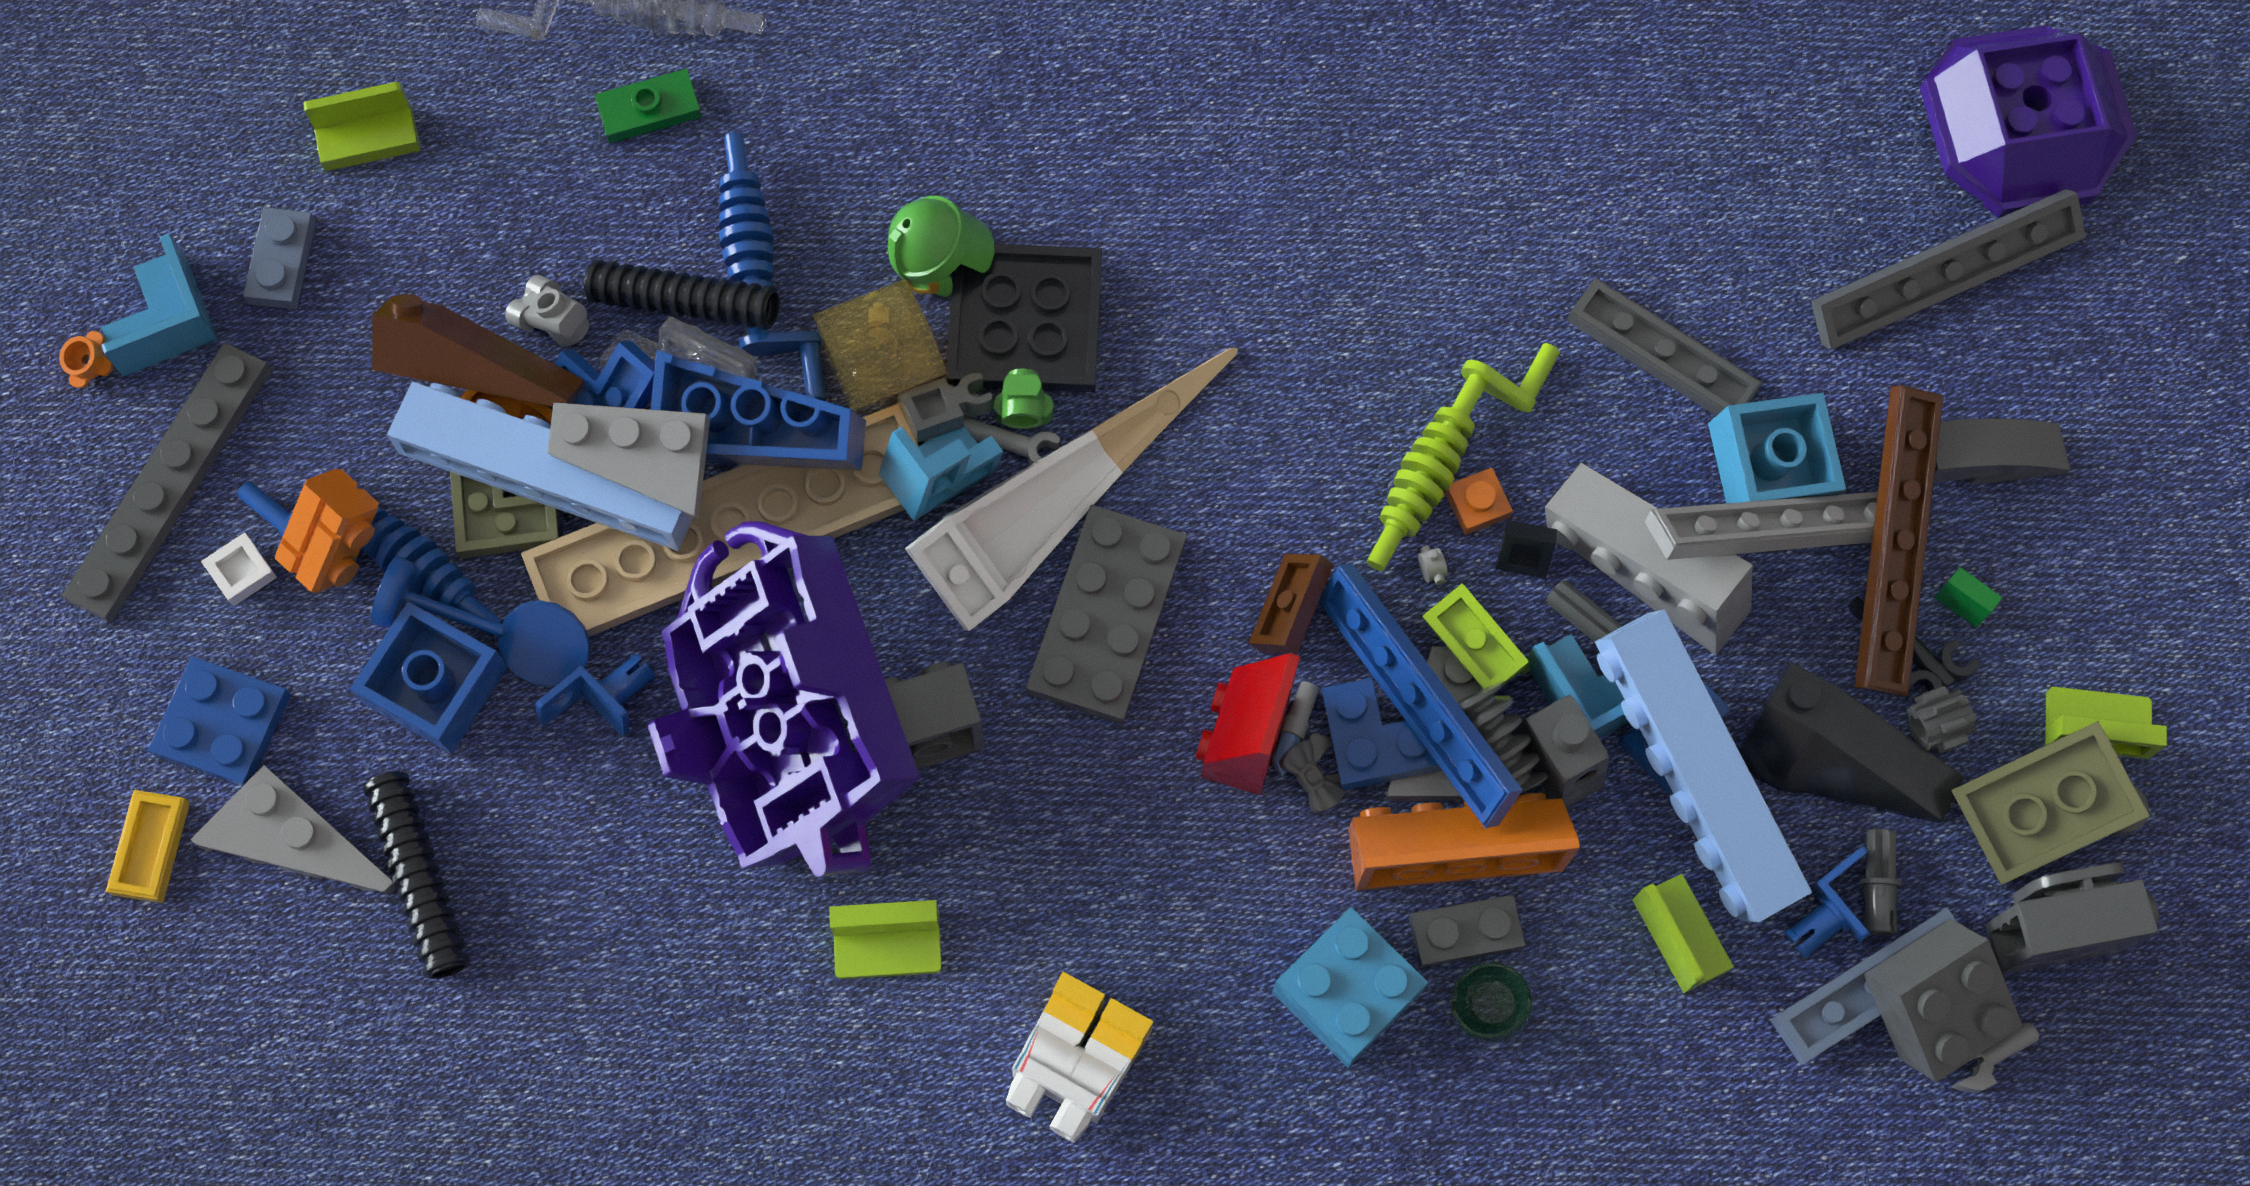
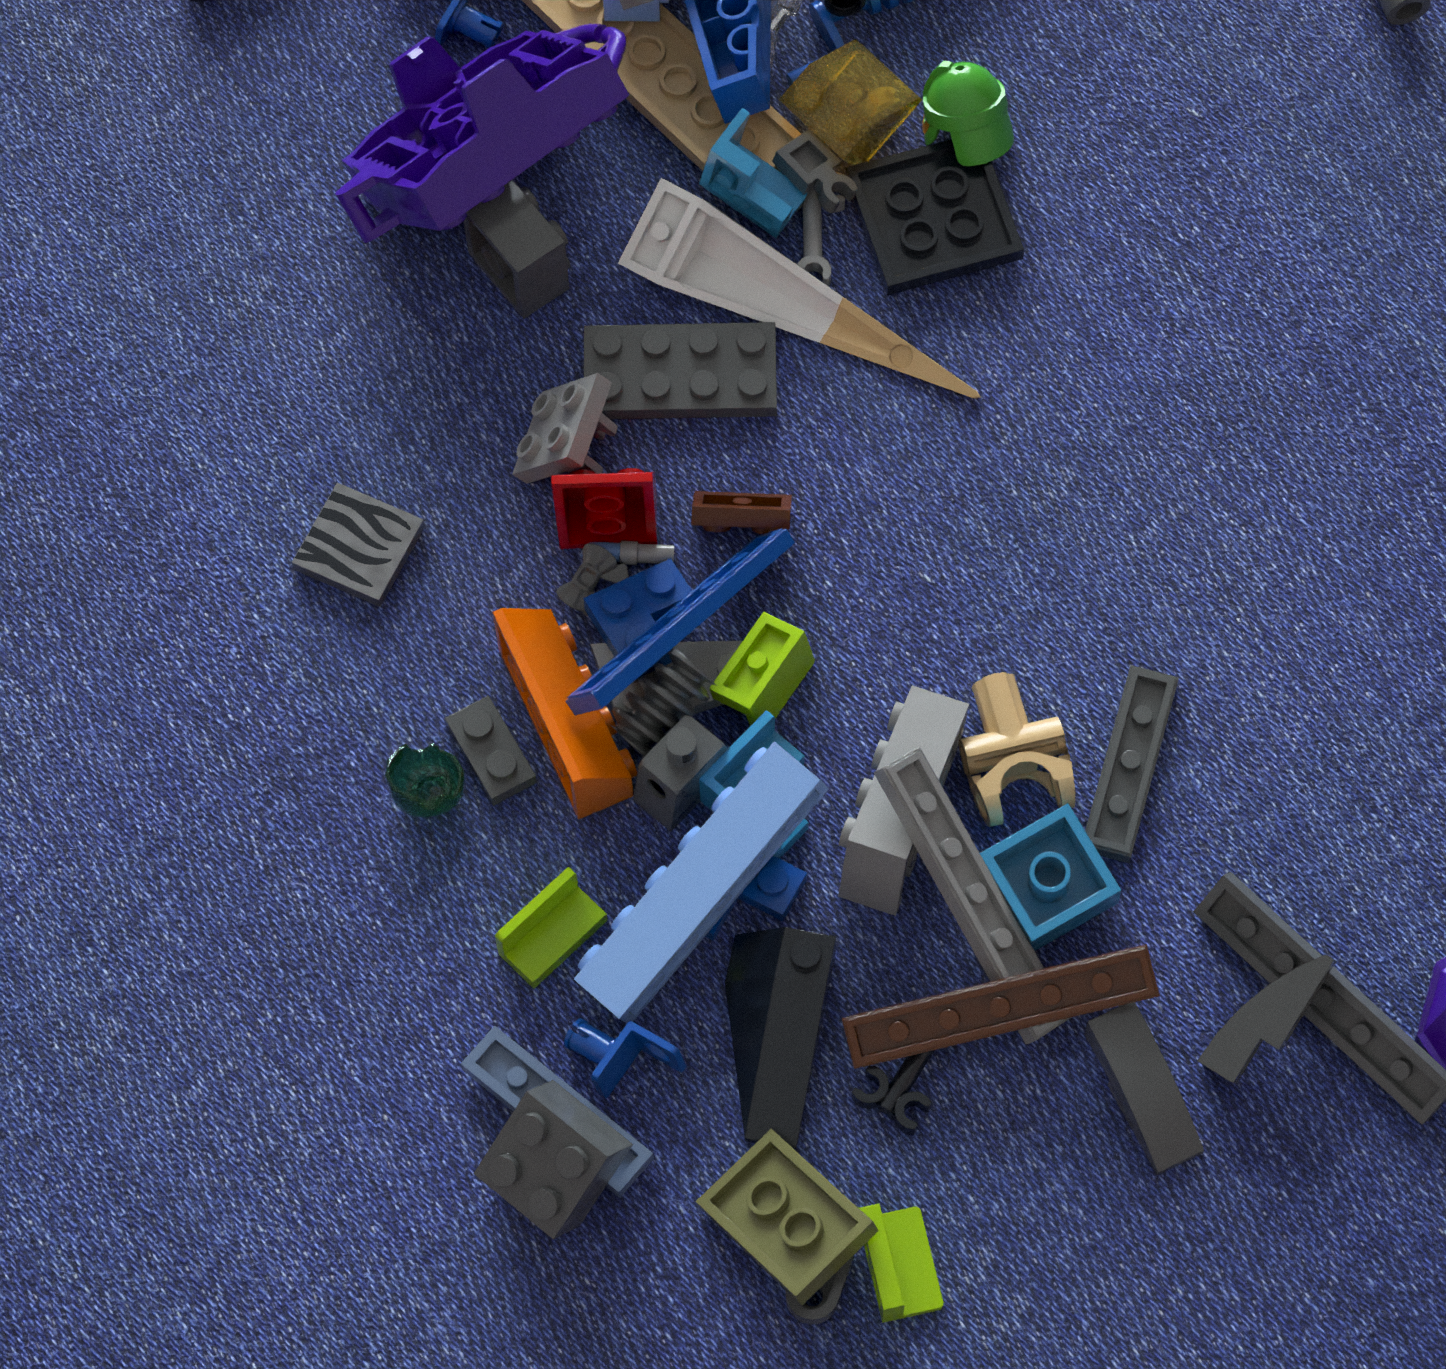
camera: 75 degrees right, 5 degrees down
(886, 939) = (324, 295): lime panel -> none
(1023, 401) = (846, 230): bright green plate -> none
(1065, 1071) = (268, 467): white hips -> none
(1149, 742) = (563, 429): none -> light grey plate
(1192, 992) = (358, 544): none -> flat silver tile
(1349, 987) = (400, 660): dark azure brick -> none
(1432, 565) = (828, 620): light grey piece -> none
(1436, 455) = (956, 592): lime piece -> none
(1478, 501) = (909, 643): orange plate -> none
(1526, 549) = (871, 690): black plate -> none
(1581, 611) = (831, 765): dark grey axle -> none
(1623, 449) = (1013, 749): none -> tan connector
(1880, 883) = (660, 1091): dark grey axle -> none
(1941, 719) = (839, 1102): dark grey gear -> none
(1968, 597) = (977, 1099): green tile -> none
(1969, 318) = (1266, 1017): none -> dark grey slope
(1982, 1072) = (530, 1239): light grey bar -> none
(2072, 919) = (673, 1259): dark grey brick -> none

